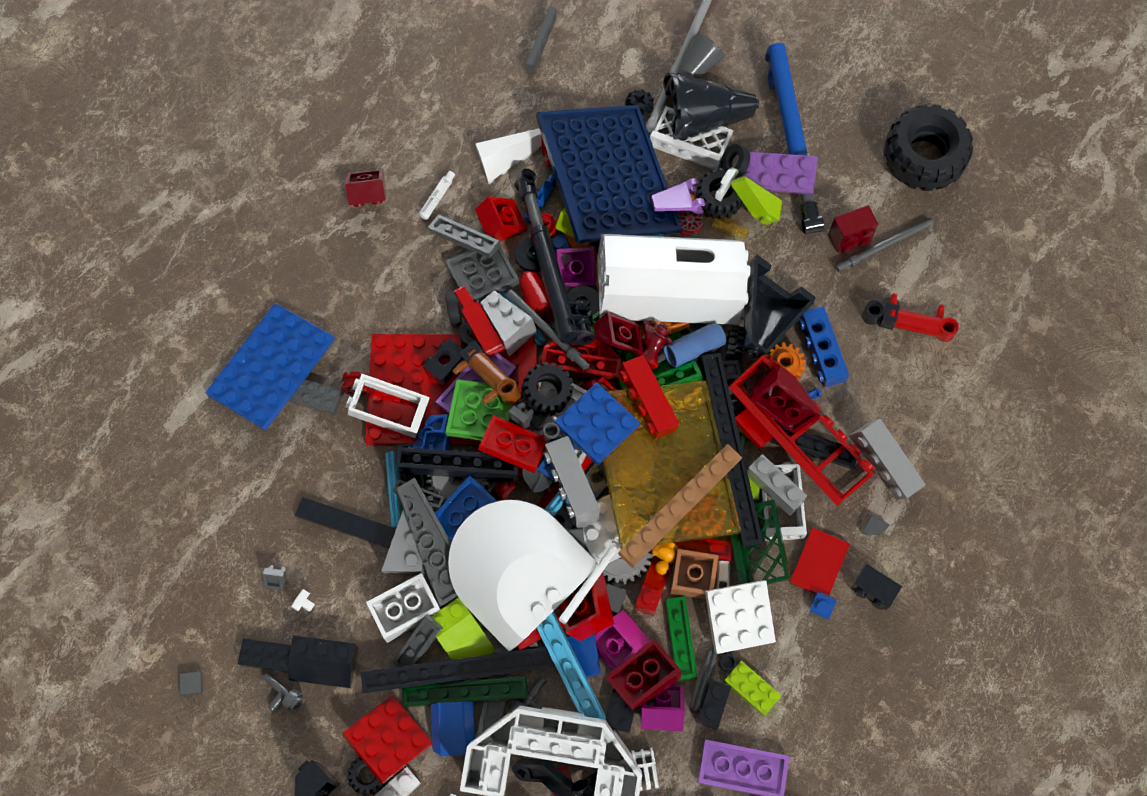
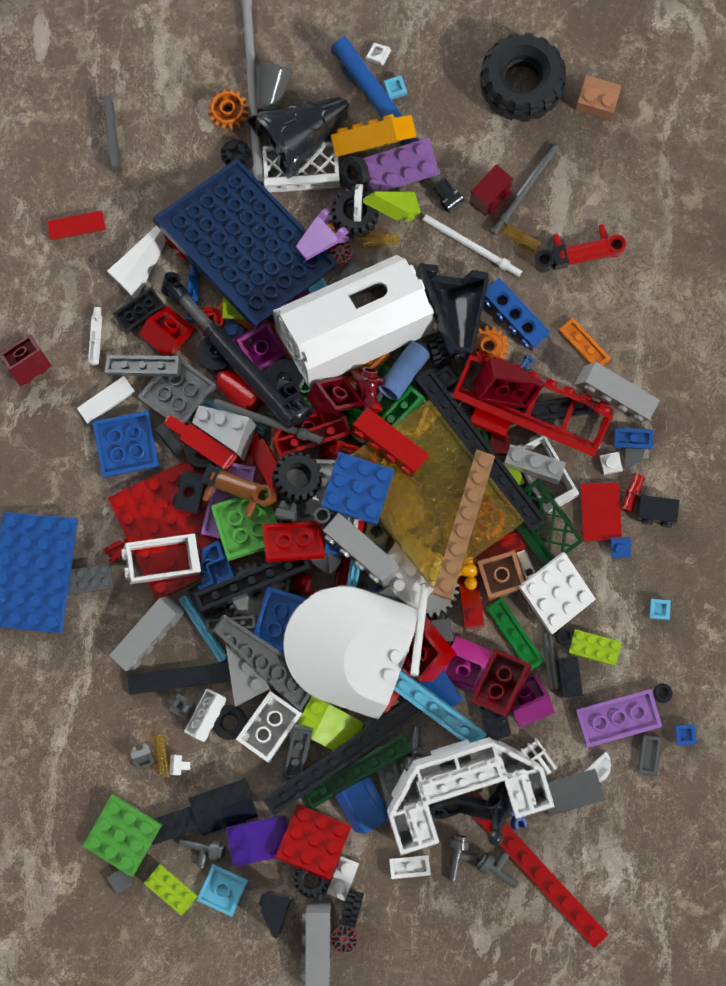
camera: 25 degrees left, 10 degrees up
(215, 640) = (122, 835): none -> bright green plate
(232, 716) = (171, 889): none -> lime piece
(279, 742) = (222, 890): none -> medium azure tile
(292, 584) = (161, 754): none -> clear yellow pin
(333, 708) = (256, 840): none -> dark purple slope
(336, 550) = (181, 706): none -> dark grey tile
(341, 466) = (147, 633): none -> light grey wedge
(352, 567) = (205, 715): none -> white piece
(362, 577) = (241, 722): none -> black tyre
(413, 296) = (125, 444): none -> blue plate
(416, 252) = (106, 400): none -> white tile
(471, 99) = (76, 225): none -> red tile
(479, 189) = (138, 310): none -> black piece
(651, 63) = (231, 118): none -> orange gear
(752, 453) = (499, 445): none -> red plate
(769, 134) = (373, 135): none -> light orange wedge
(805, 767) = (667, 689): none -> black plate
(806, 77) = (378, 54): none -> white tile
(808, 109) = (395, 87): none -> medium azure plate
(834, 299) = (504, 264): none -> white bar
(834, 683) = (660, 609): none -> medium azure plate
(850, 522) = (610, 463): none -> white plate
(859, 559) = (632, 493): none -> red pin
(862, 284) = (522, 237): none -> clear yellow axle
(875, 400) = (583, 343): none -> orange tile
(883, 509) = (633, 438): none -> blue plate
(989, 198) = (598, 97): none -> nougat slope

